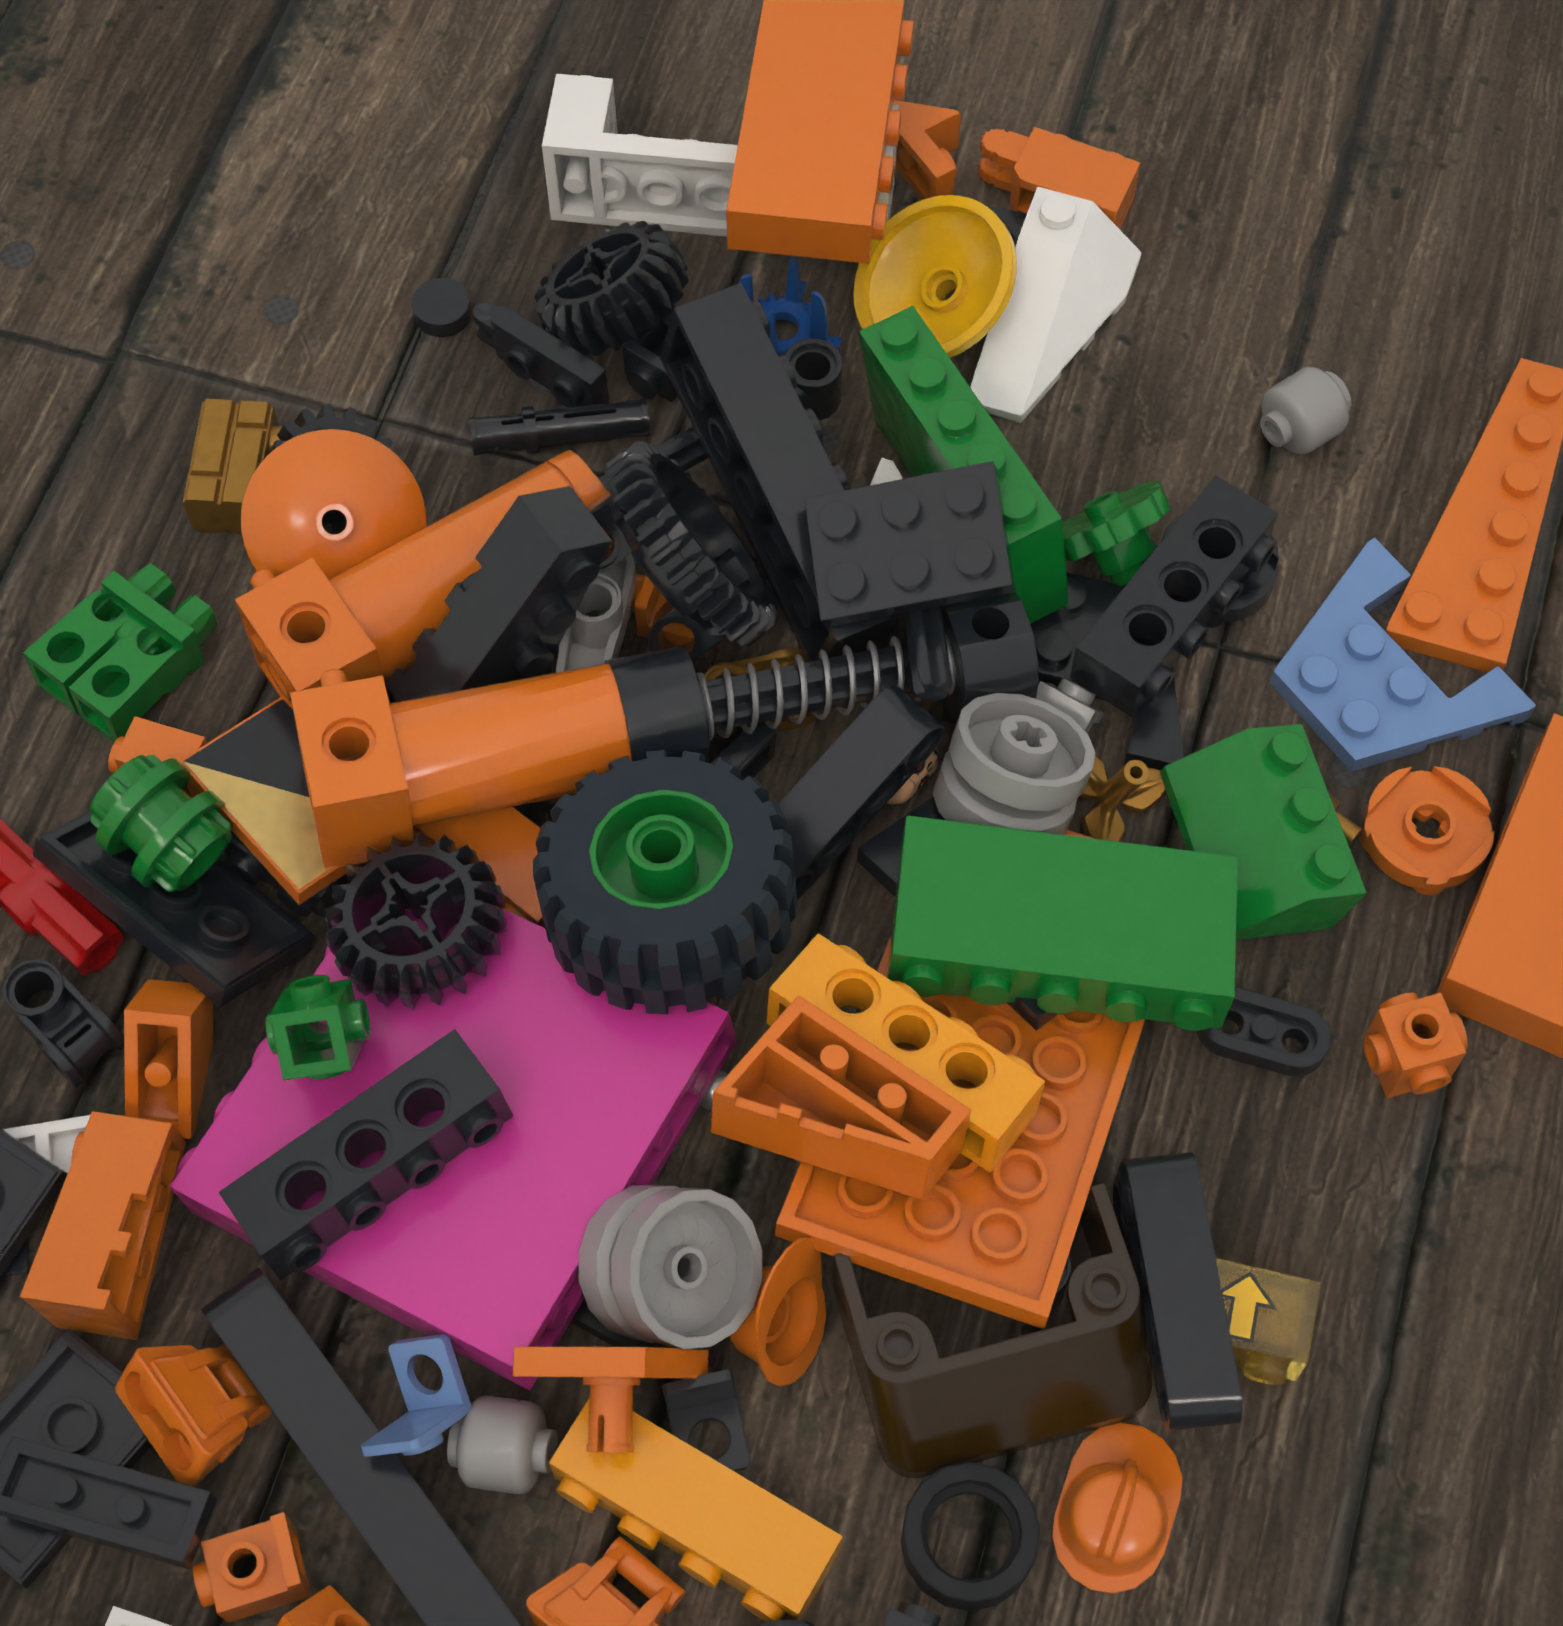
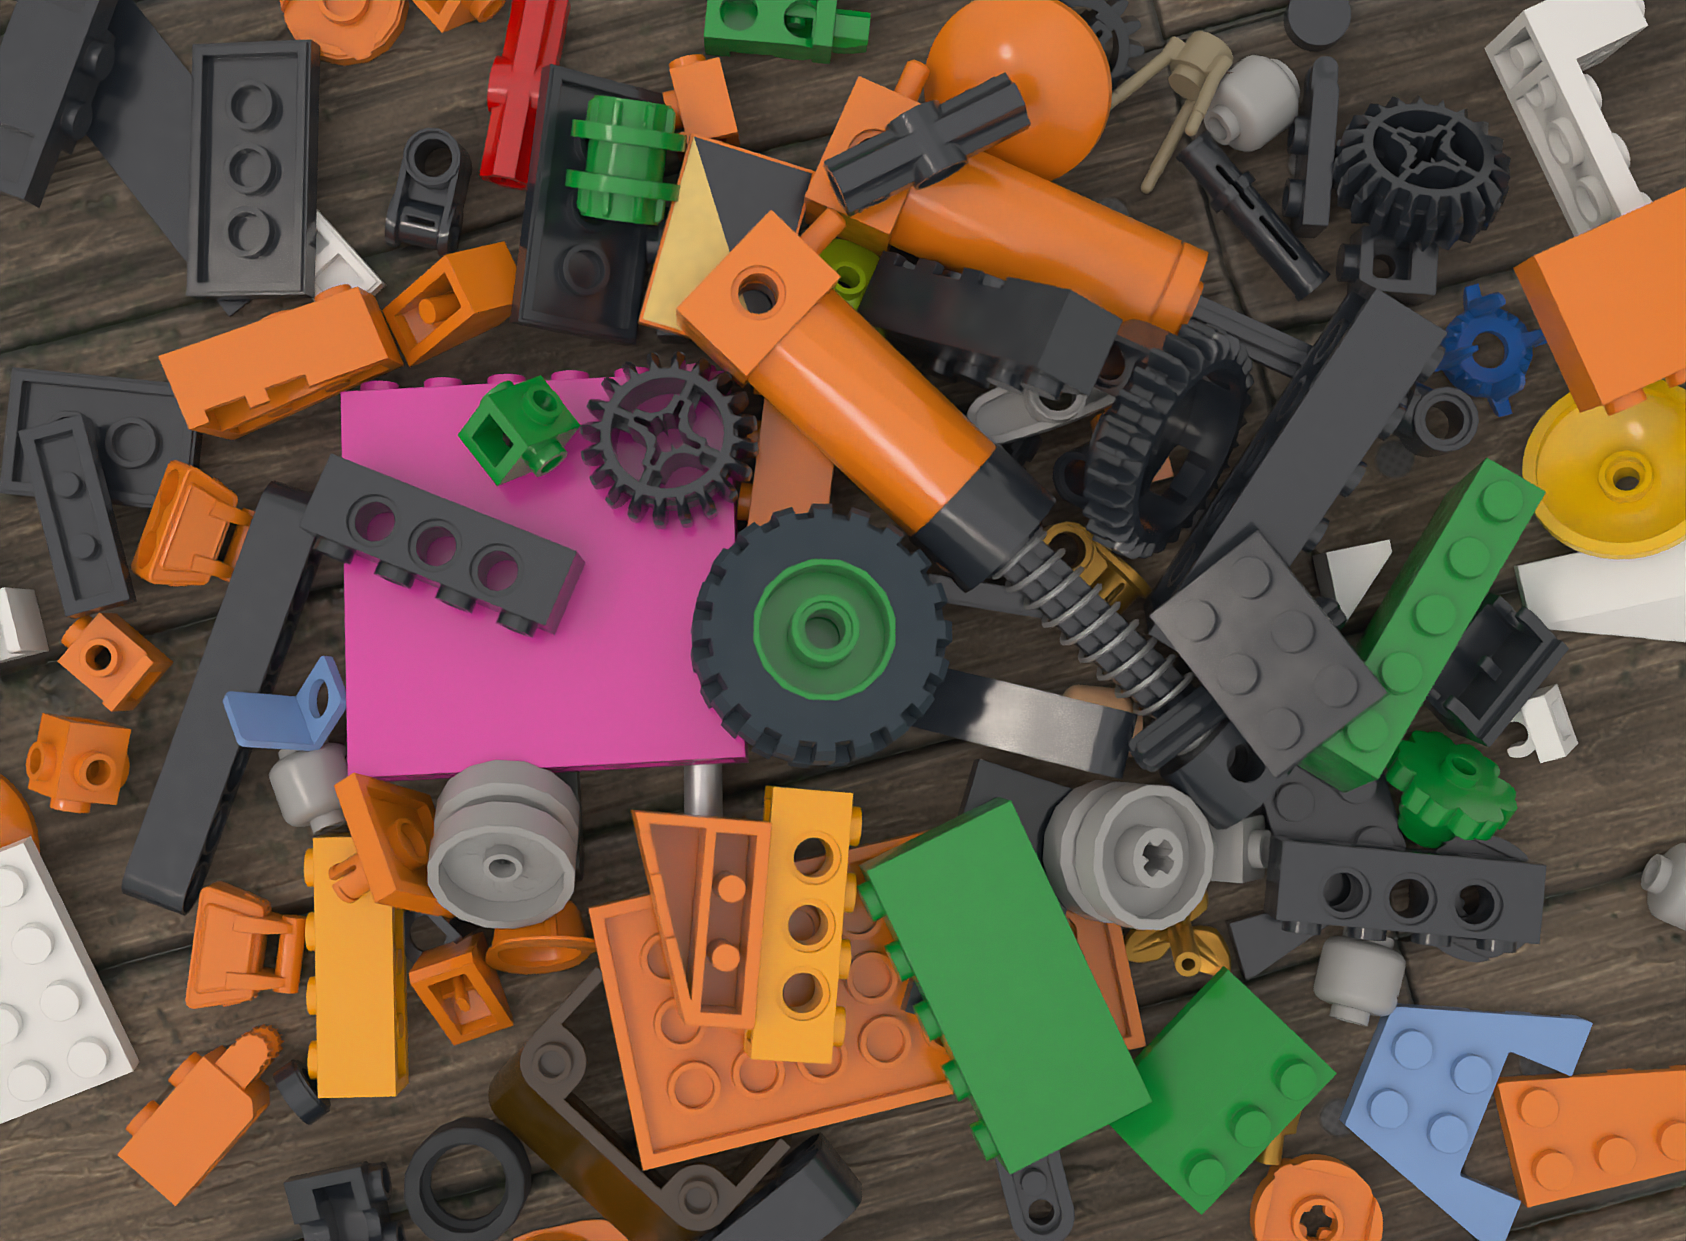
camera: 60 degrees right, 25 degrees up
(327, 572) = (927, 144): none -> black piece
(418, 399) = (1195, 75): none -> dark tan plant
(471, 374) = (1253, 103): none -> light grey head
(784, 1424) = (461, 989): none -> orange slope
(1046, 444) = (1493, 670): none -> black hinge
(1103, 441) = (1547, 726): none -> white tile
(1231, 679) = (1359, 978): none -> light grey head

